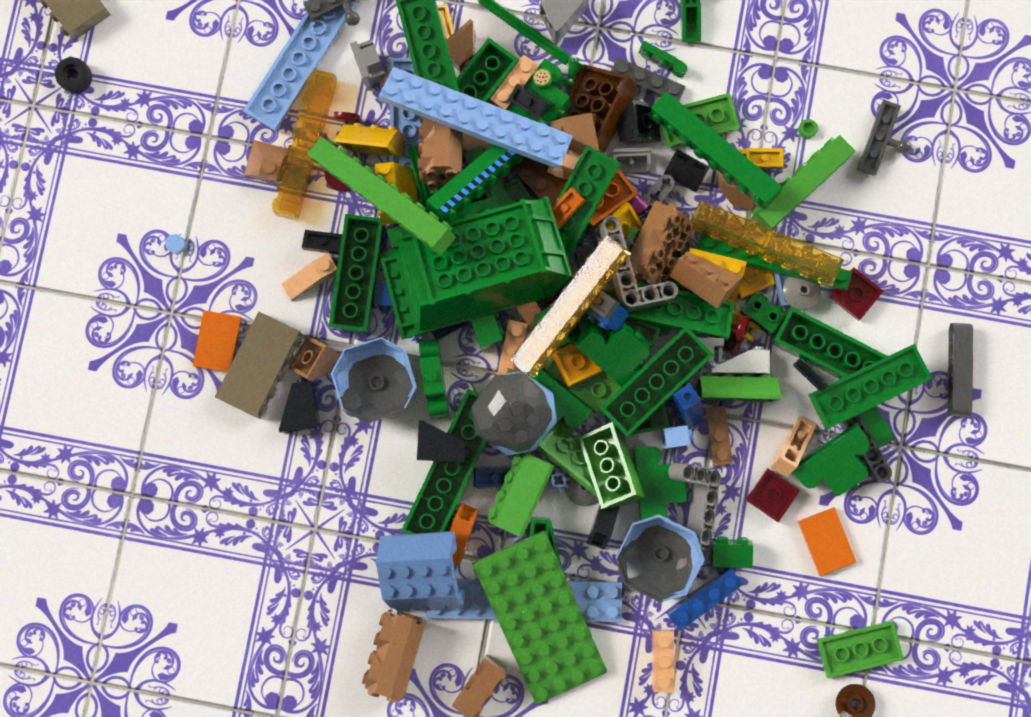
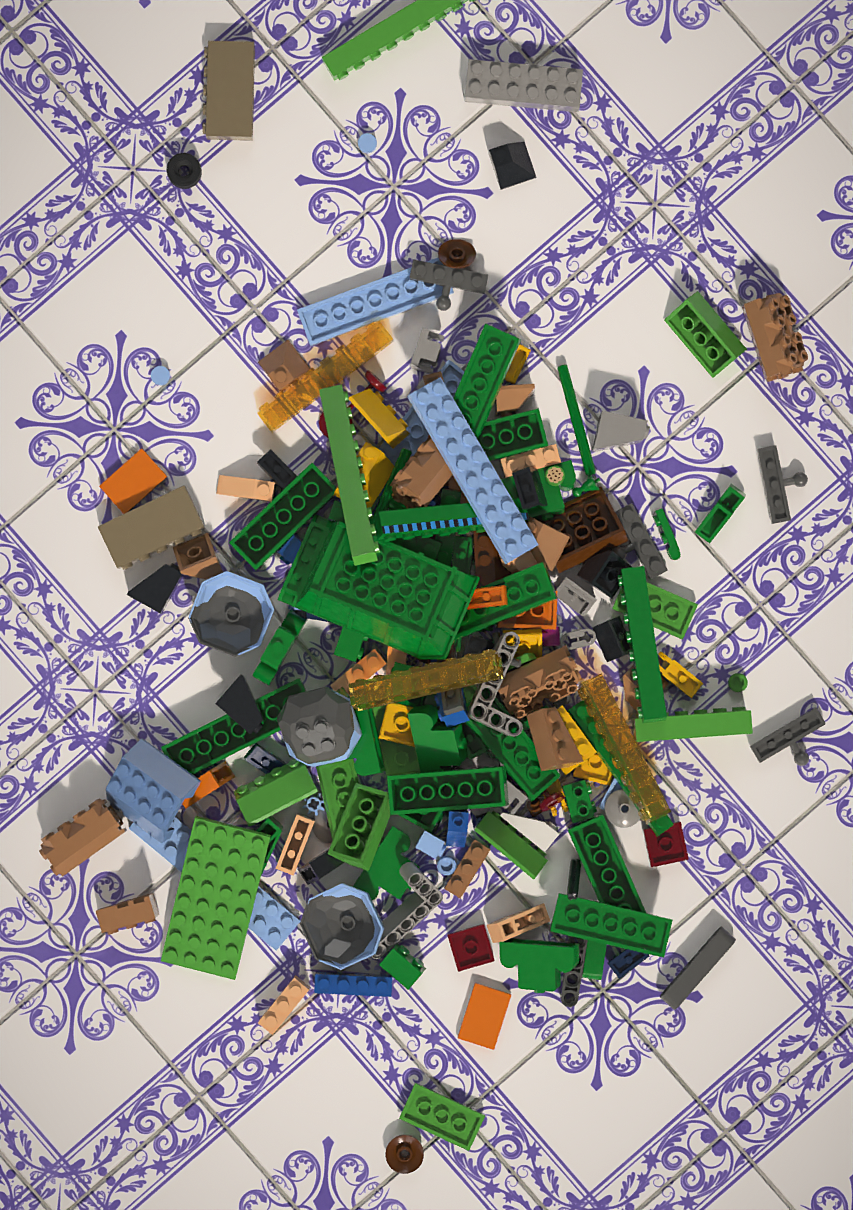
camera: 35 degrees right, 5 degrees up
(569, 523) = (295, 844): none -> light nougat brick
(700, 446) = (446, 865): none -> light blue tile
(901, 408) = (626, 961): none -> dark blue plate

